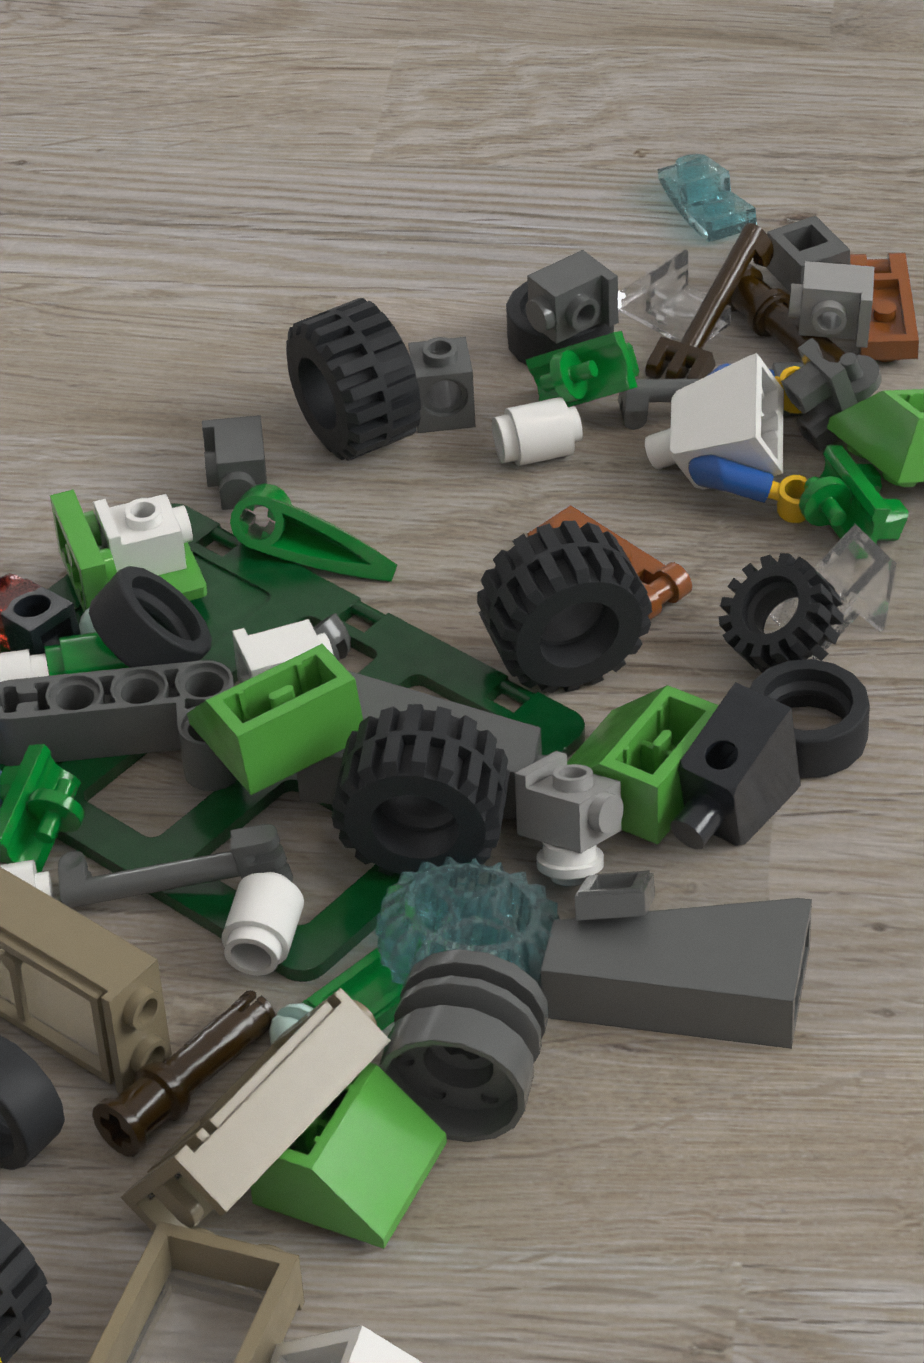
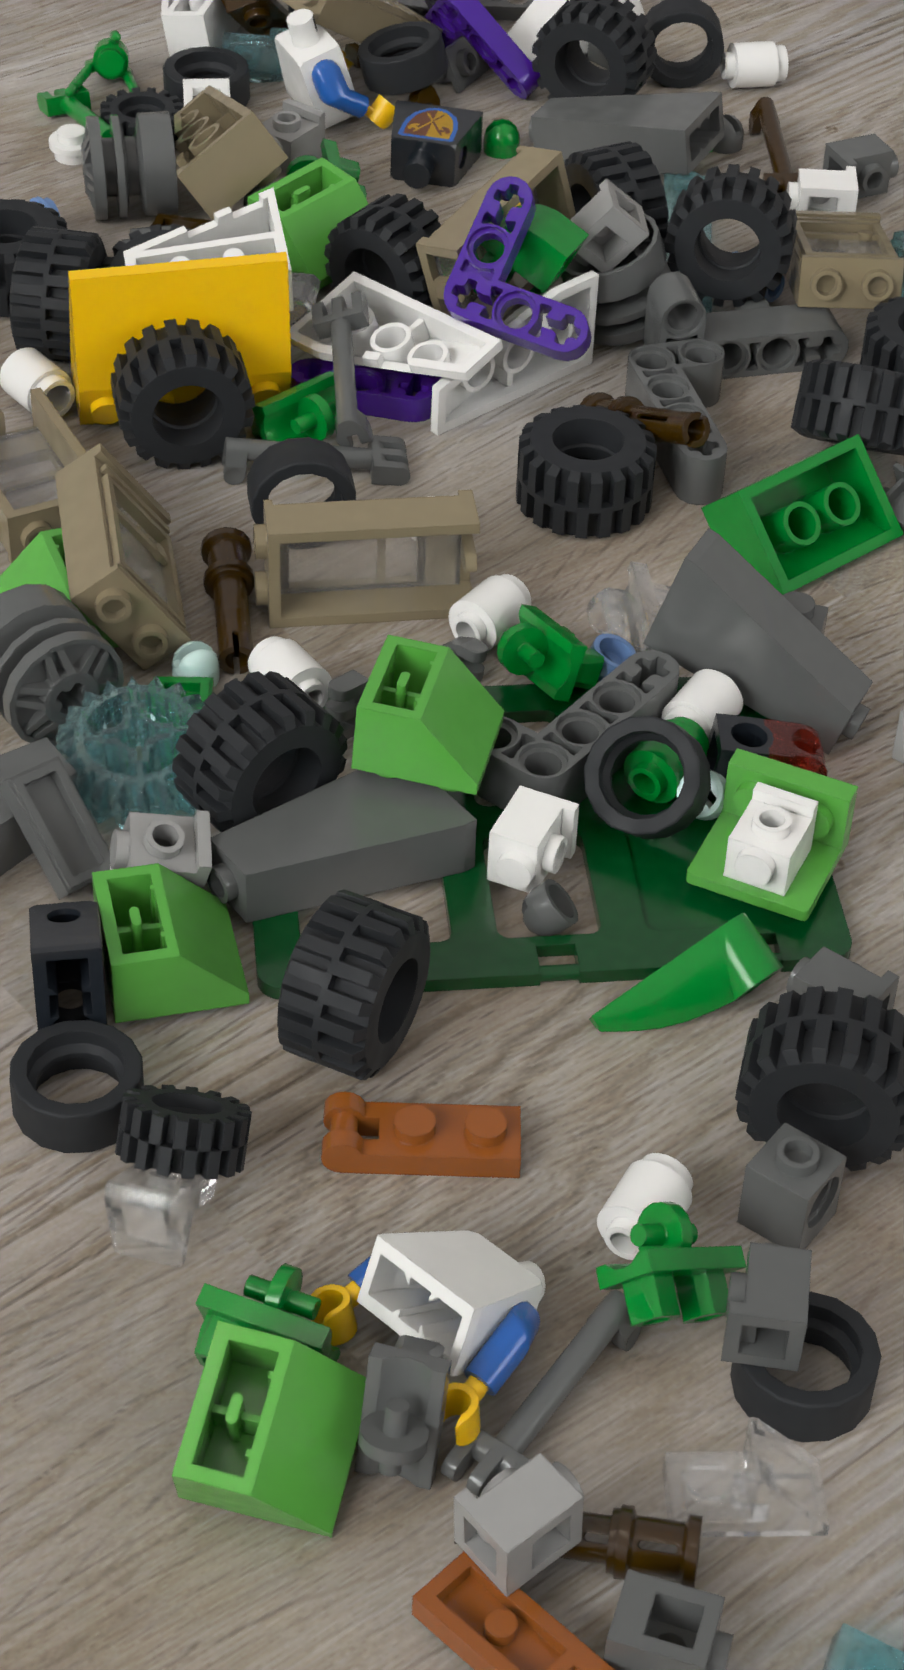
camera: 130 degrees right, 0 degrees up
(689, 352) = (648, 1427): dark brown hinge -> none

